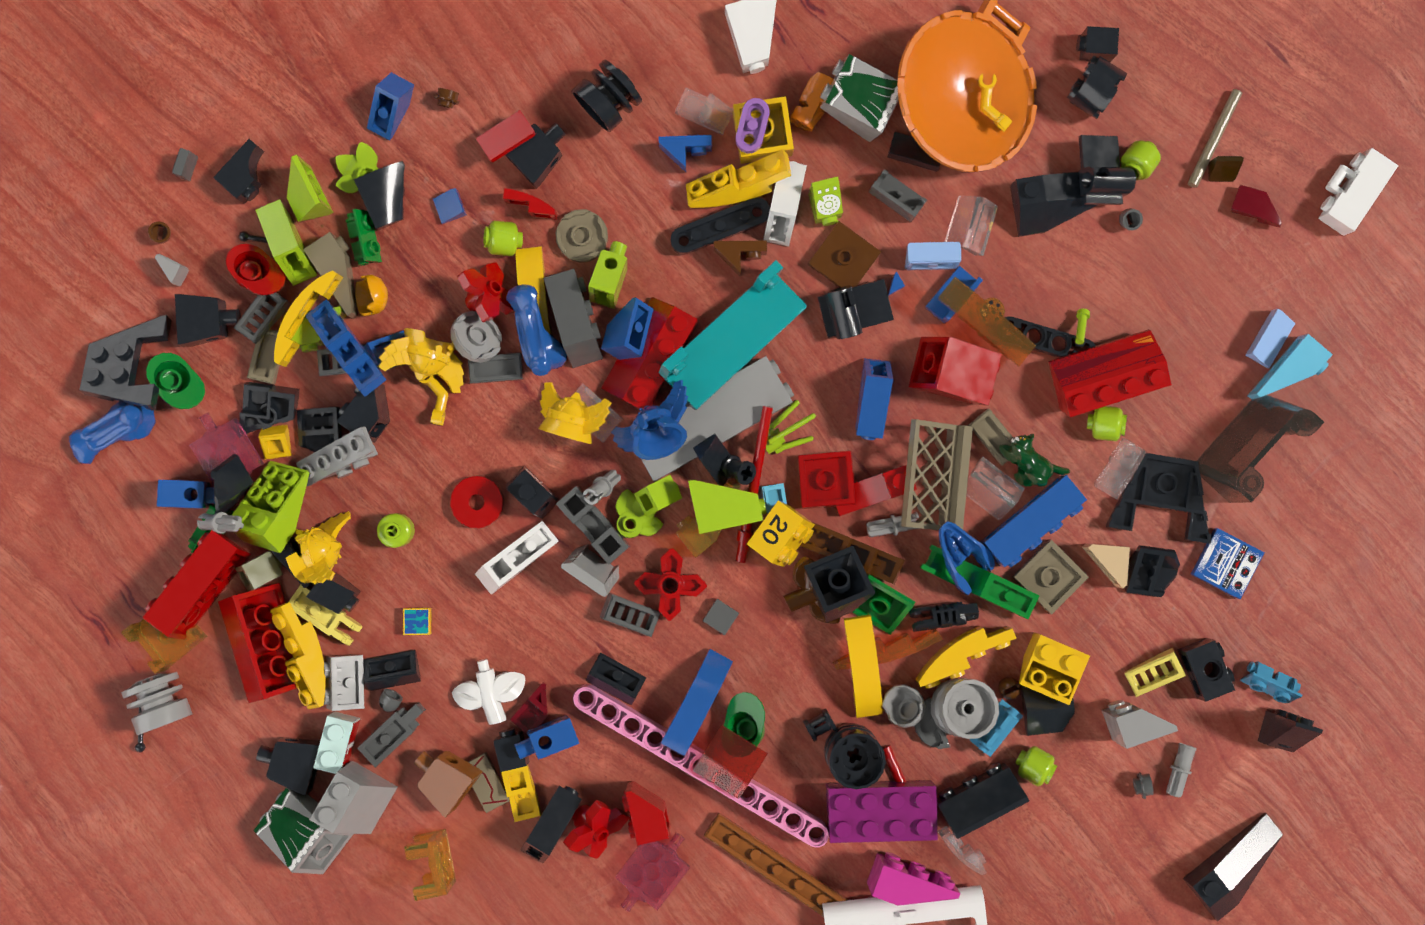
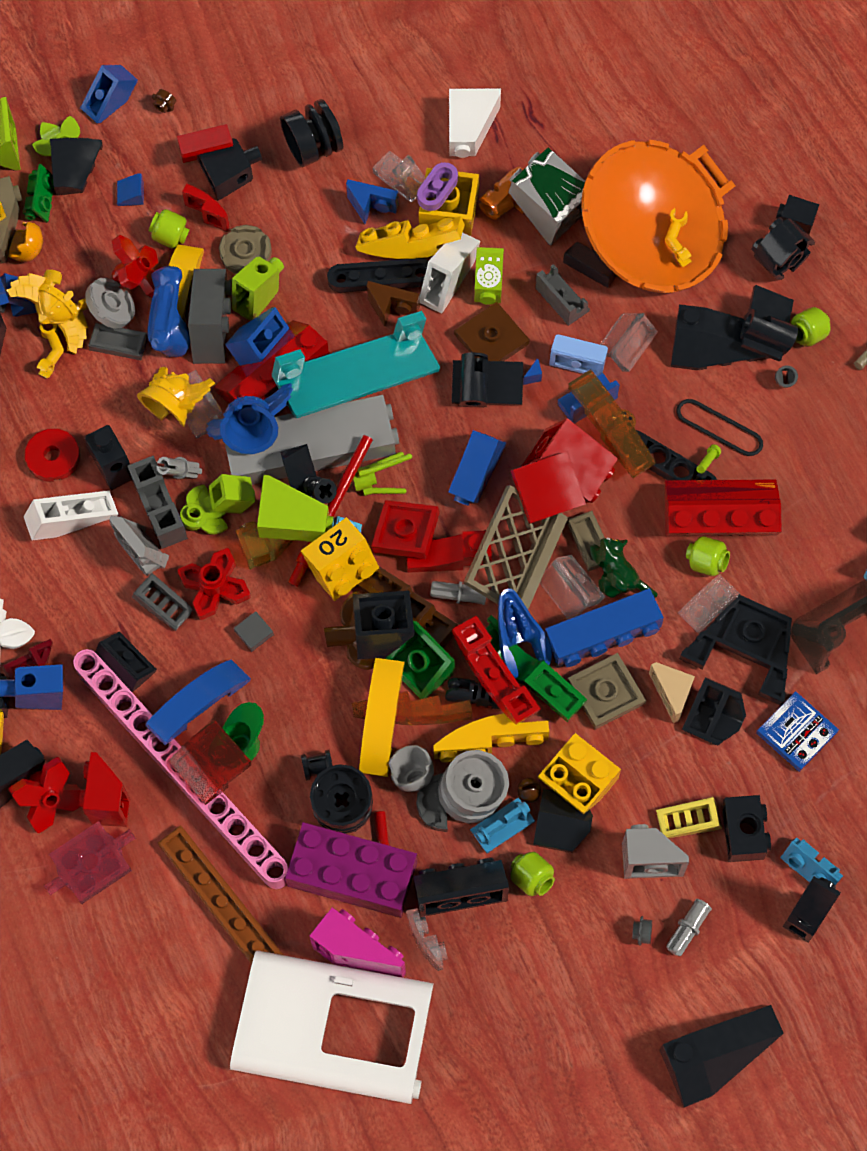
camera: 20 degrees right, 20 degrees down
(950, 409) = (548, 487): none -> red slope
(954, 601) = (492, 672): none -> red slope
(1083, 276) = (715, 436): none -> black piece

